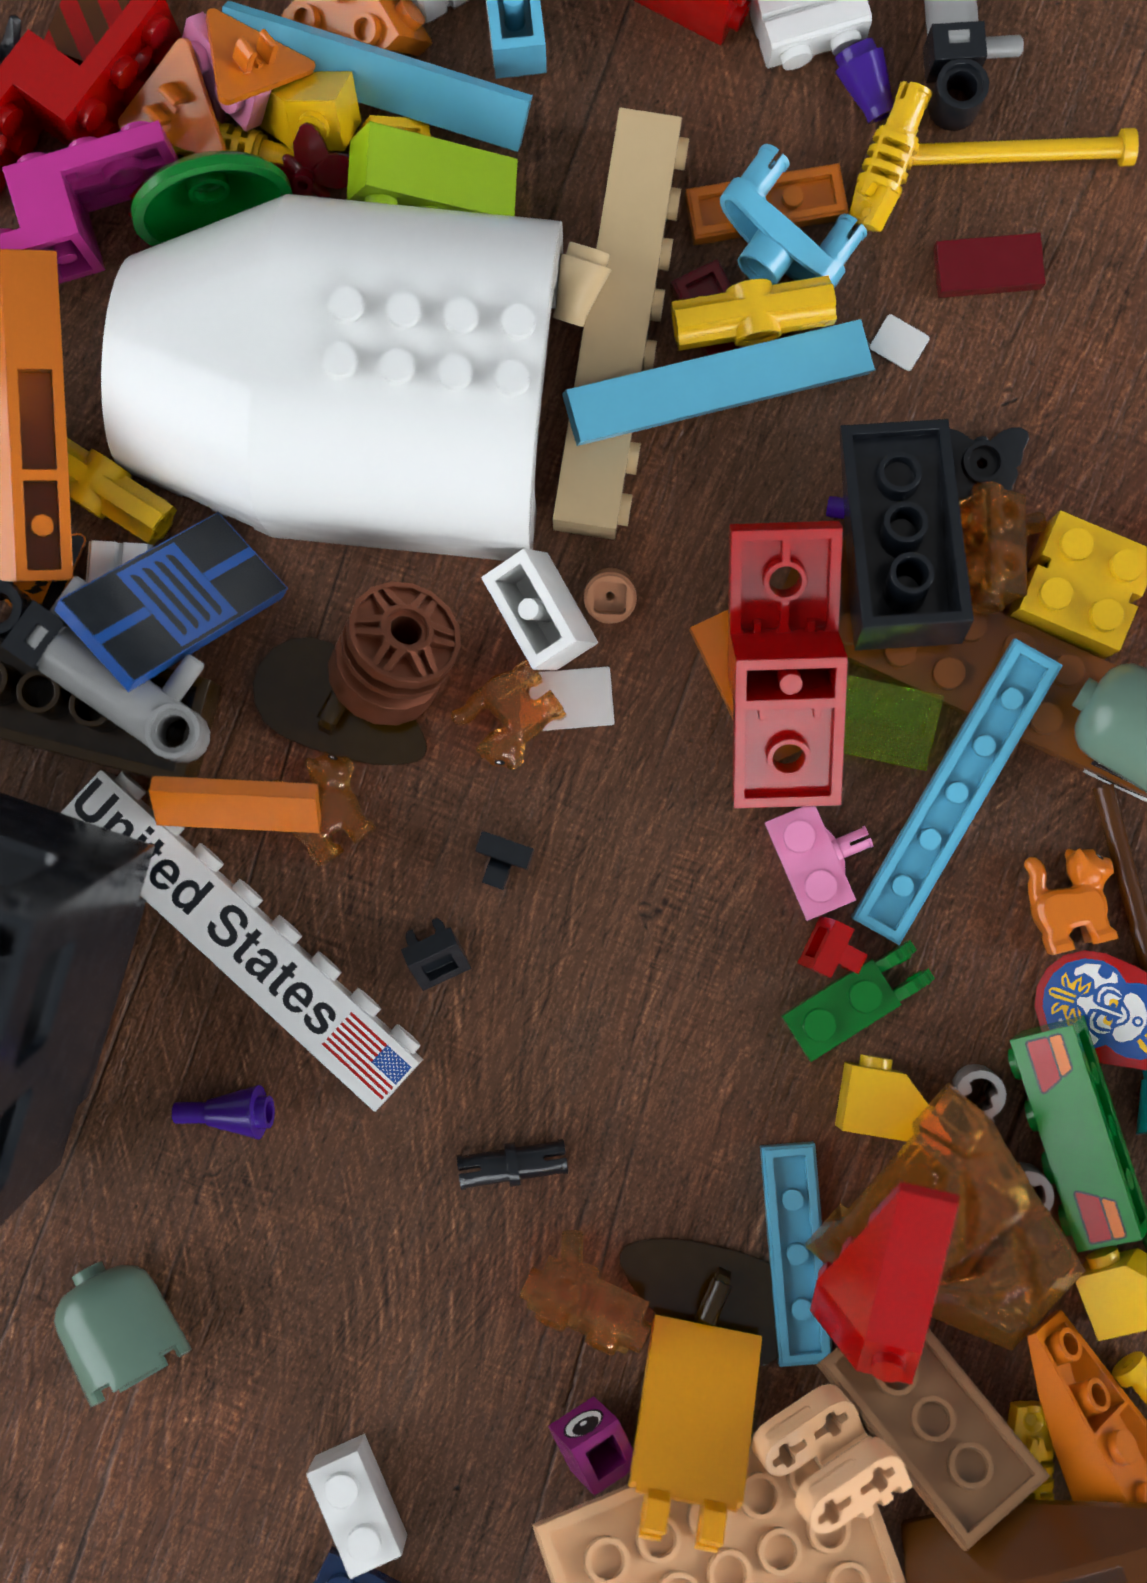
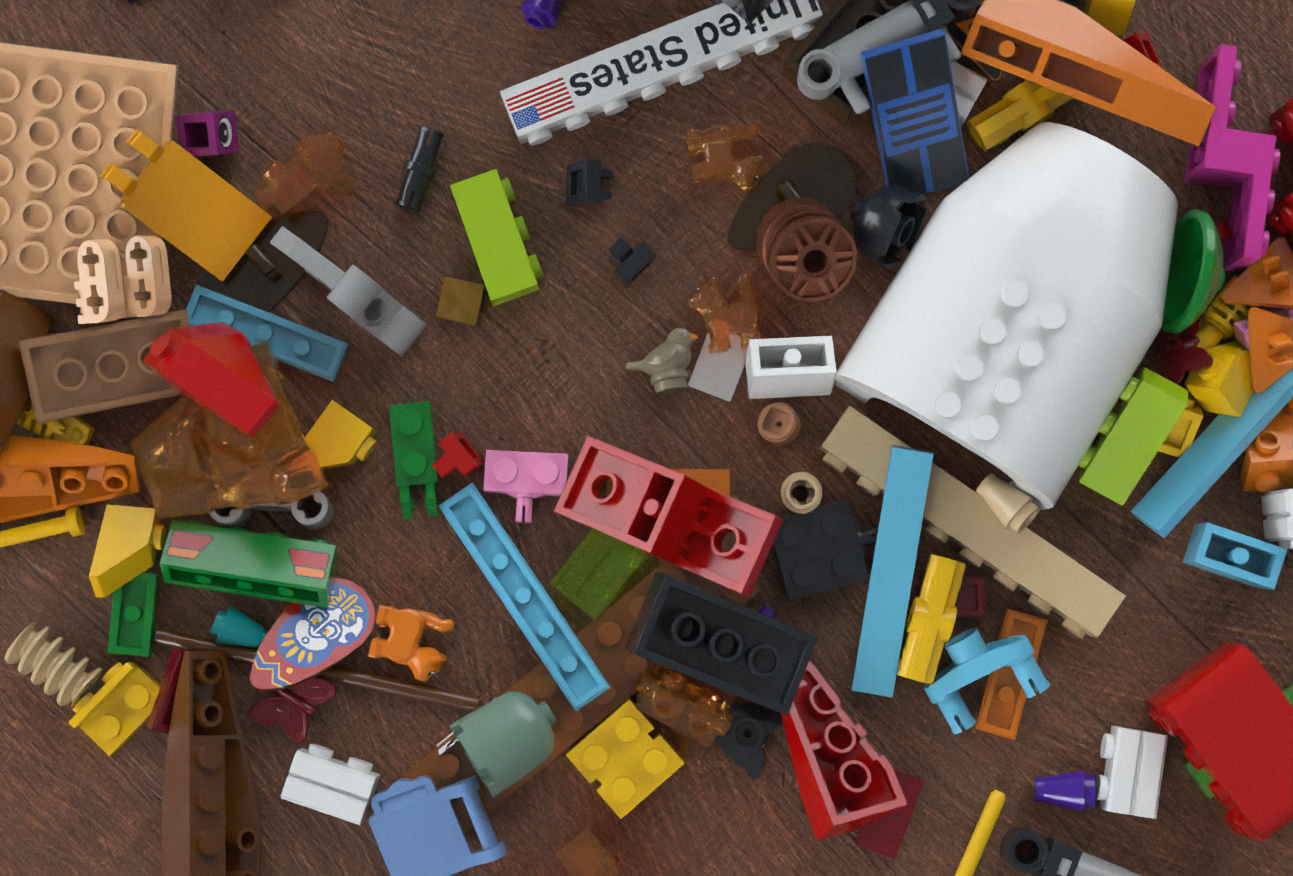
camera: 115 degrees right, 0 degrees up
(235, 804) = (753, 93): orange tile -> none
(315, 580) = (887, 222): none -> black cylinder
(549, 1031) = (497, 236): none -> lime brick
(600, 757) = (668, 363): none -> dark tan animal
(645, 1037) = (460, 301): none -> pearl gold tile
(686, 515) = (809, 484): none -> tan cone
(707, 1165) = (356, 295): none -> light grey piece
(731, 474) = (822, 550): none -> black plate
(889, 158) = (983, 759): yellow hinge -> none
(899, 342) = (869, 717): white sticker -> none
(972, 343) = (835, 766): none -> red wedge

